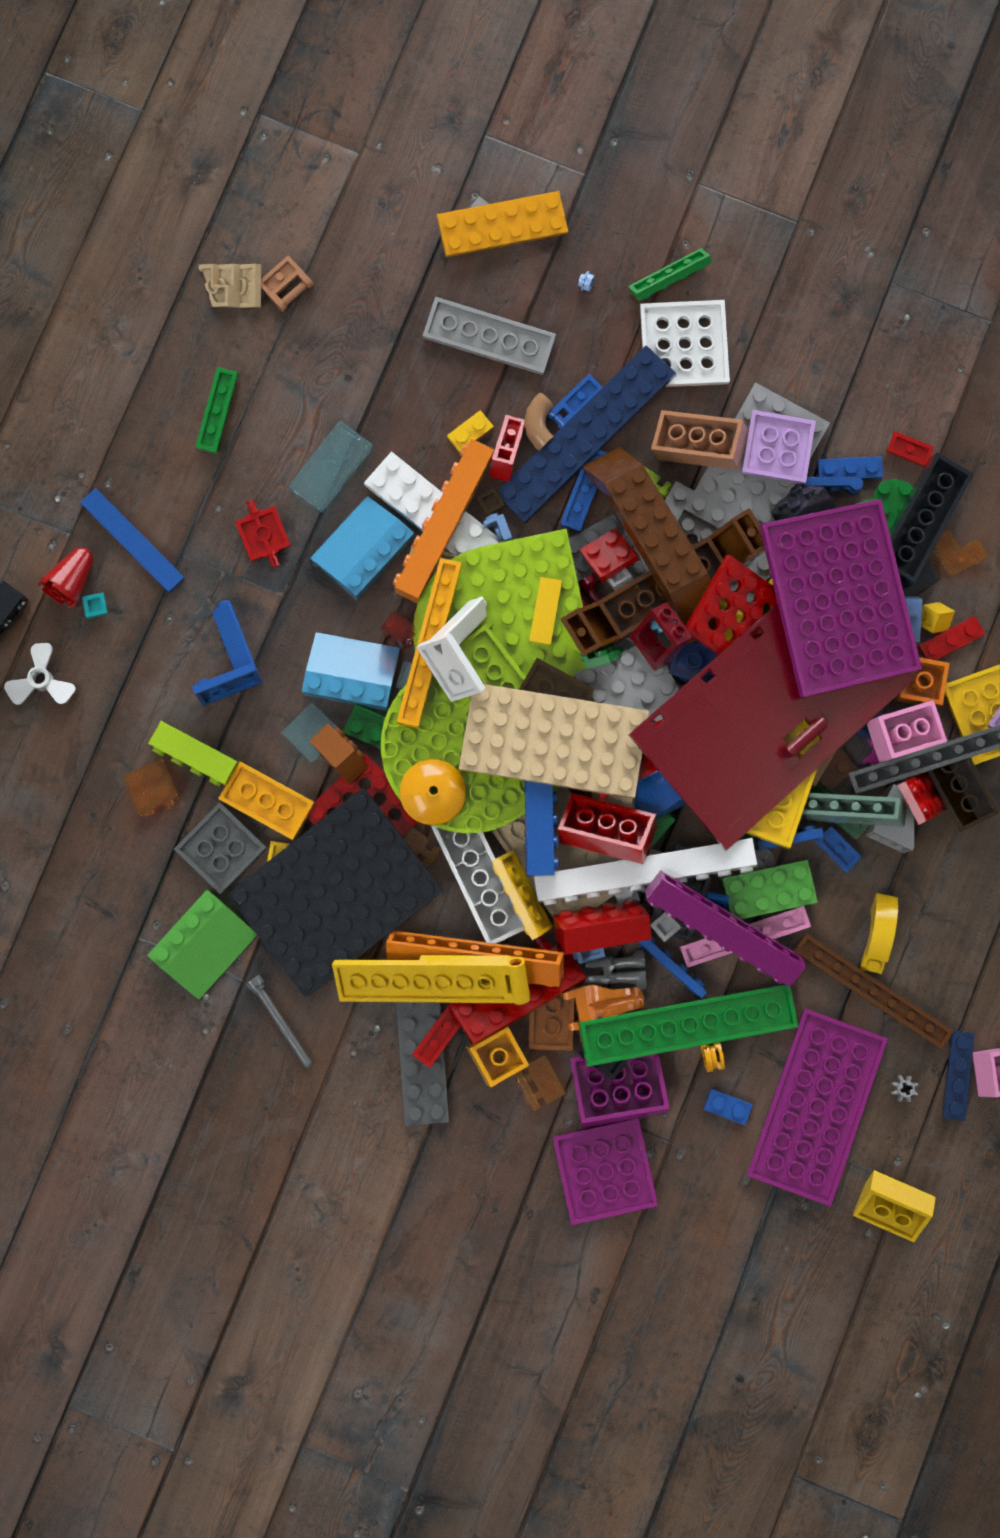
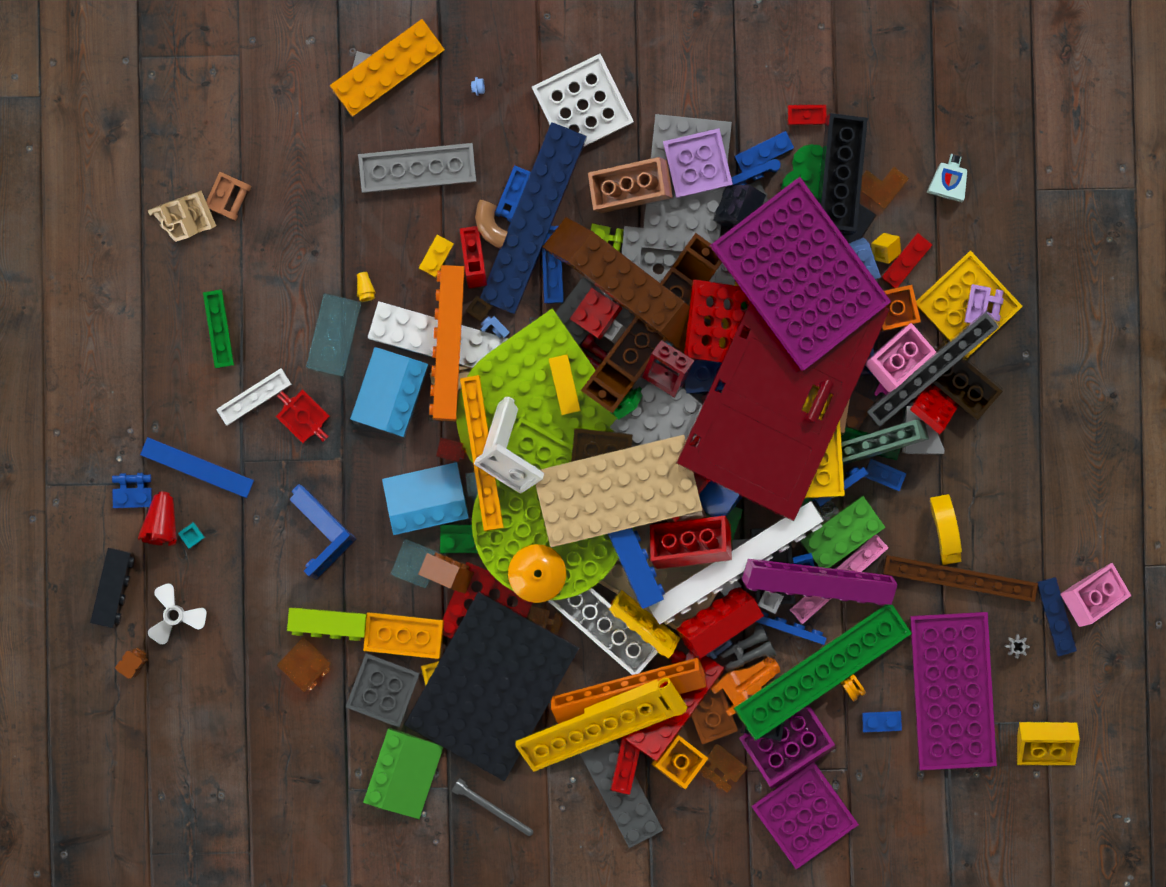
camera: 20 degrees left, 5 degrees up
(51, 542) = (131, 497): none -> blue plate
(221, 493) = (254, 397): none -> white plate
(383, 435) = (365, 289): none -> yellow cone
(675, 271) = (545, 50): green plate -> none

